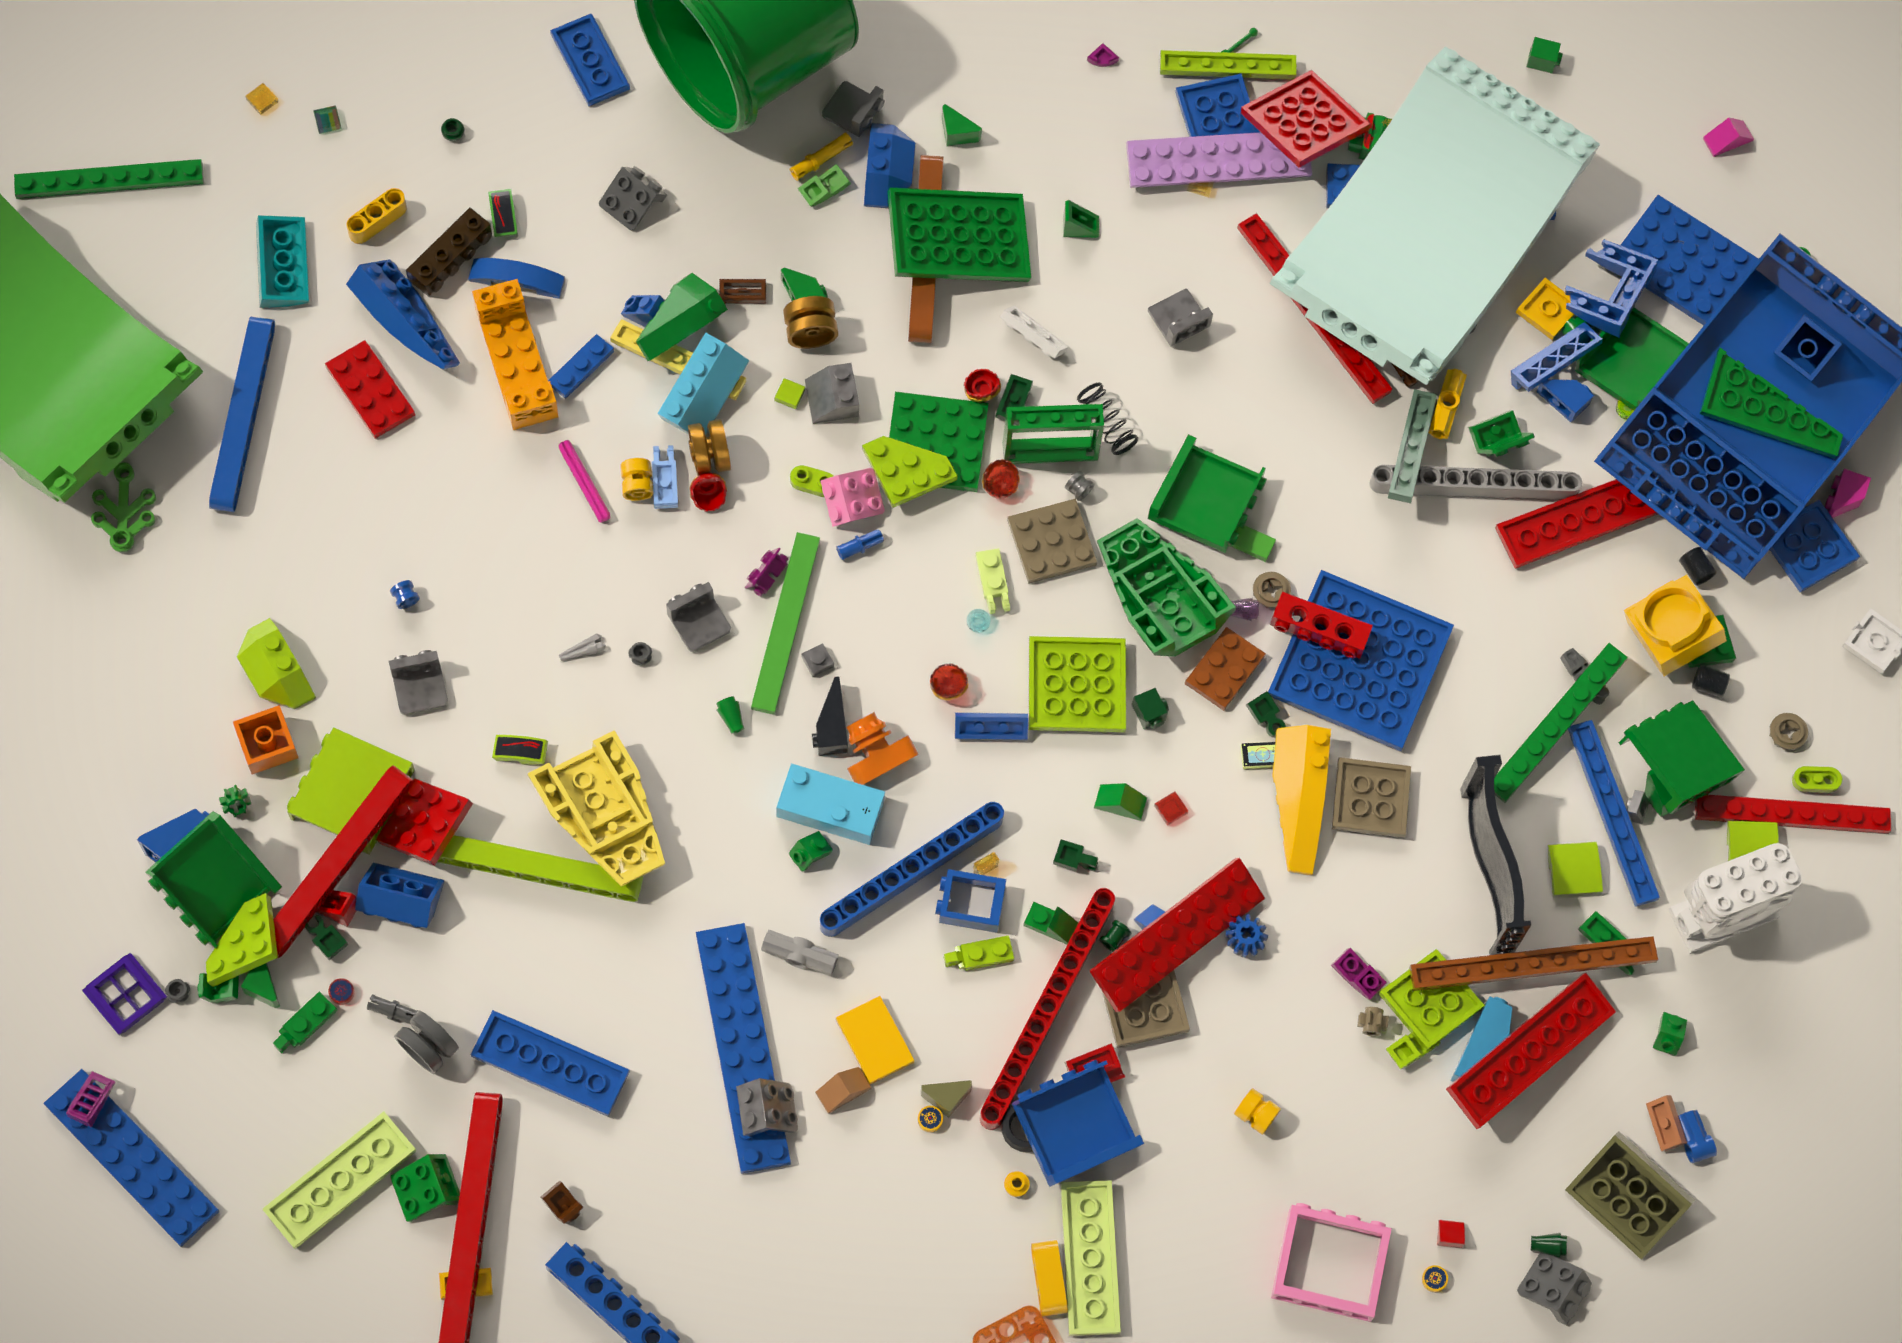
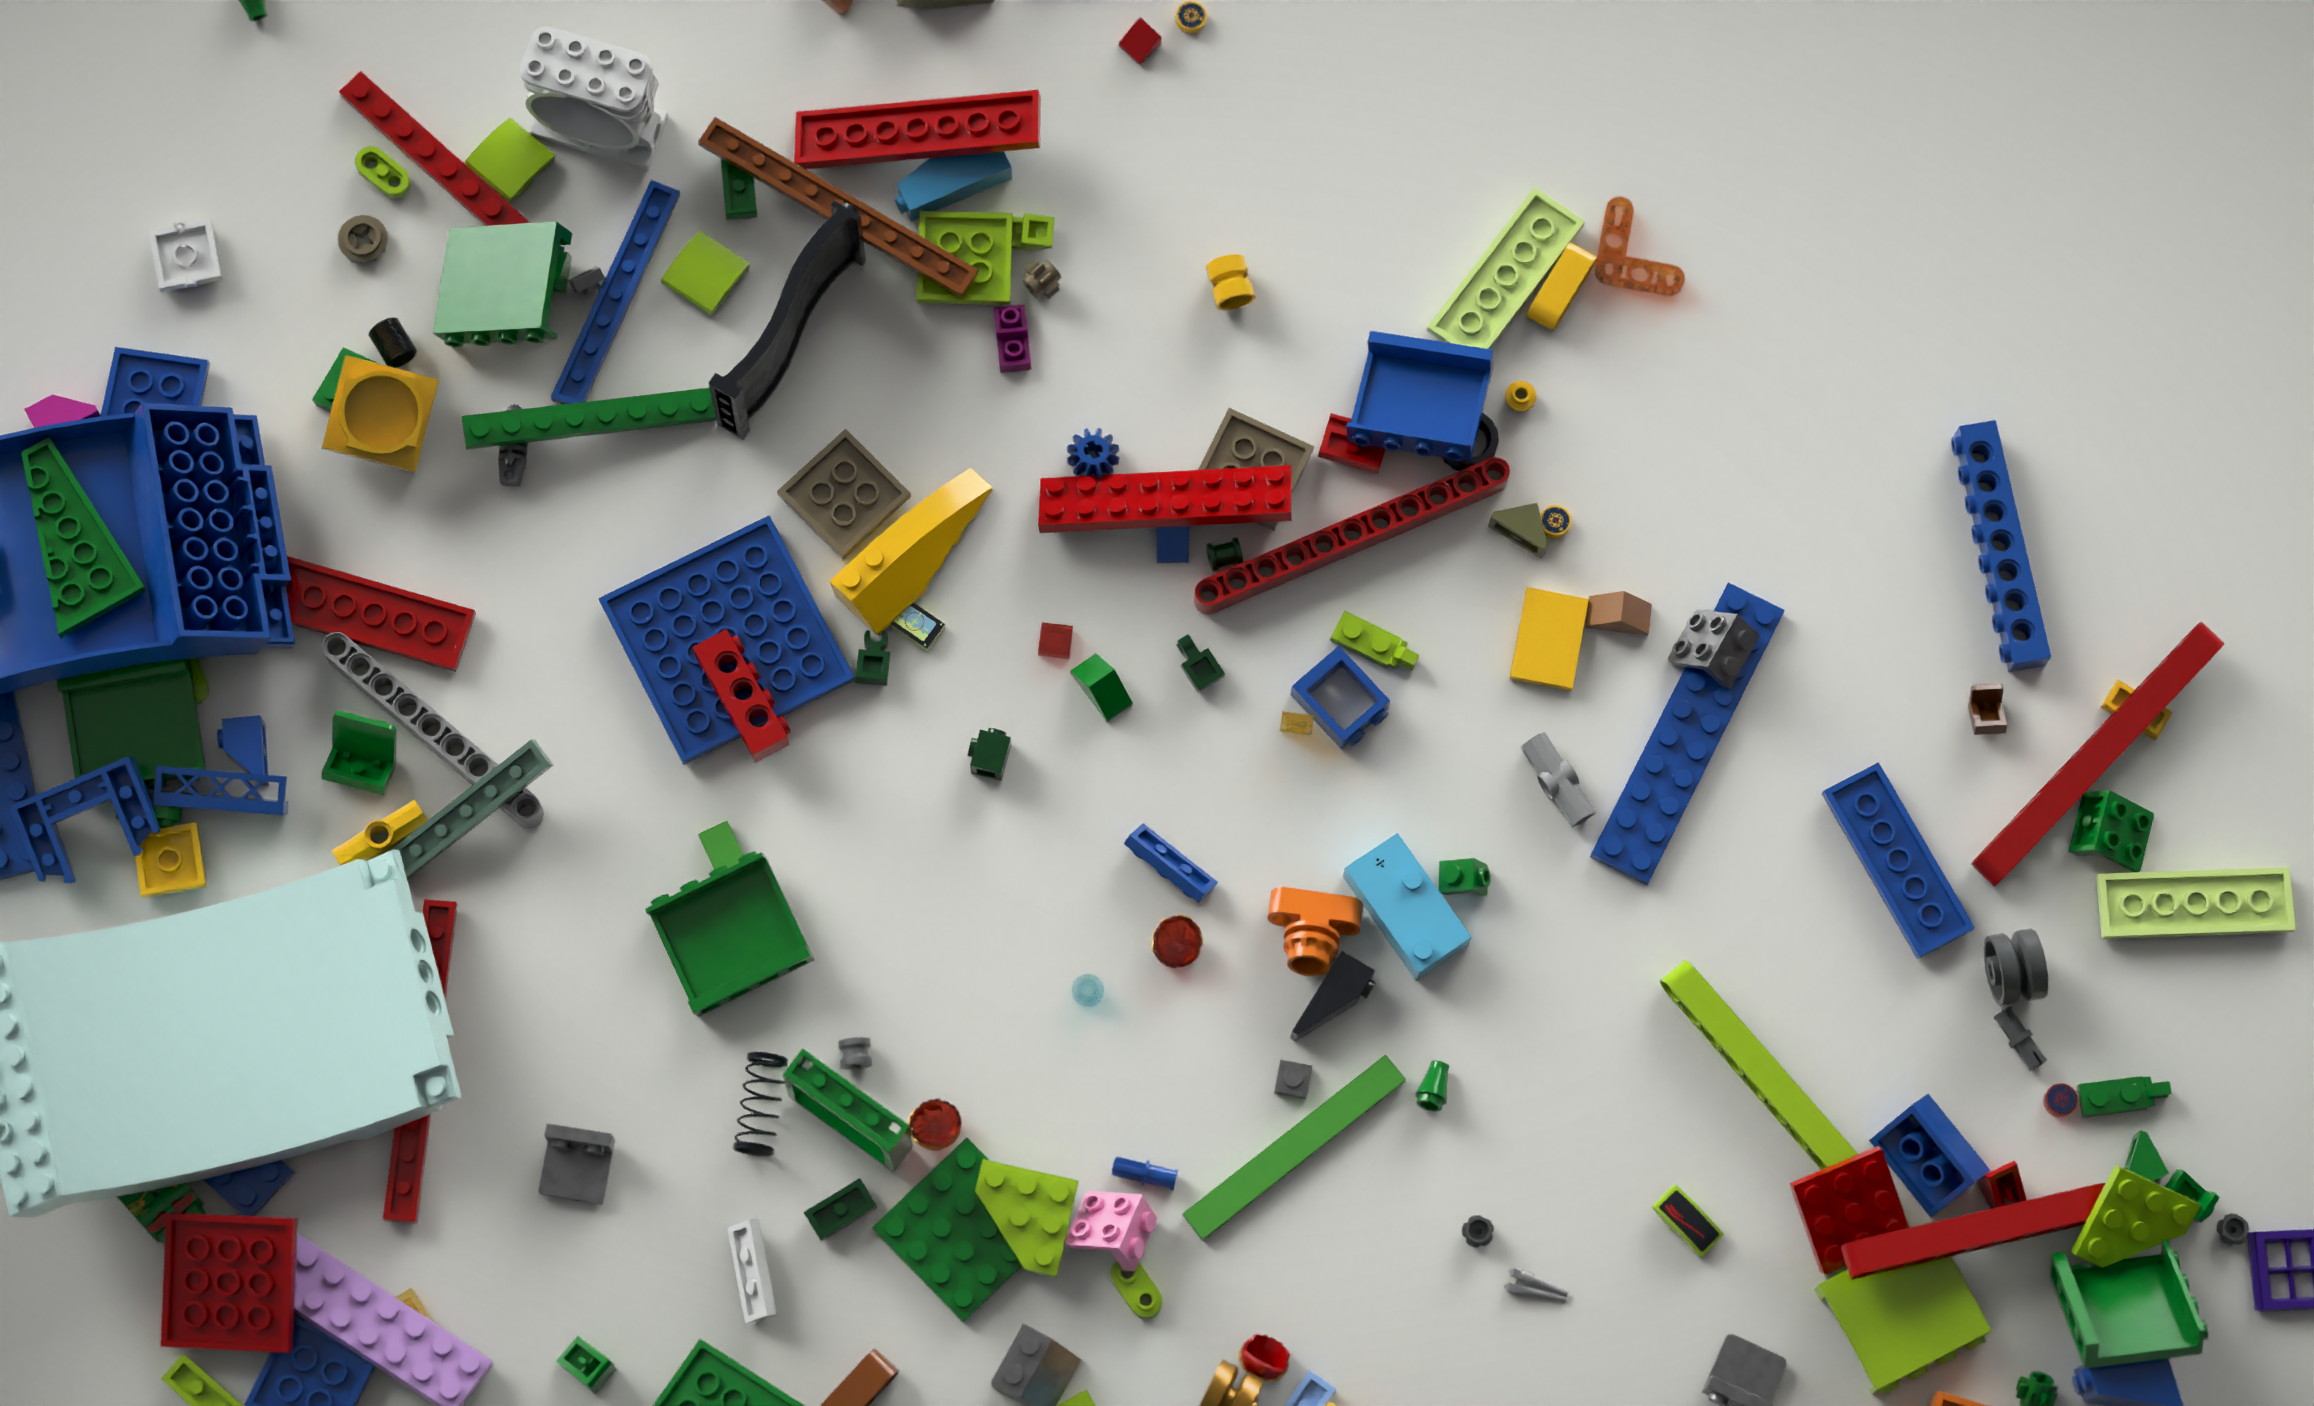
camera: 140 degrees left, 5 degrees up
(327, 939) = (2038, 1162): dark green plate -> none
(603, 808) = (1654, 1077): light yellow wedge -> none
(697, 617) = (1387, 1219): flat silver bracket -> none
(760, 577) = (1285, 1217): magenta hinge -> none
(907, 879) = (1390, 770): blue beam -> none
(982, 385) = (863, 1249): red hair -> none
(992, 578) = (1033, 1025): yellowish green hinge -> none
(1052, 541) = (934, 1019): dark tan plate -> none
(1052, 923) = (1276, 619): green slope -> none
(1077, 684) = (1042, 840): lime plate -> none
(1162, 591) = (871, 868): green wedge -> none
(1225, 668) = (872, 741): dark orange plate -> none
(1246, 609) = (799, 785): clear purple cone -> none
(1277, 582) = (746, 771): dark tan gear -> none
(1321, 1301) = (1318, 71): bright pink window -> none
(1670, 1033) = (760, 54): green bracket -> none
(1697, 566) = (290, 464): black piece -> none

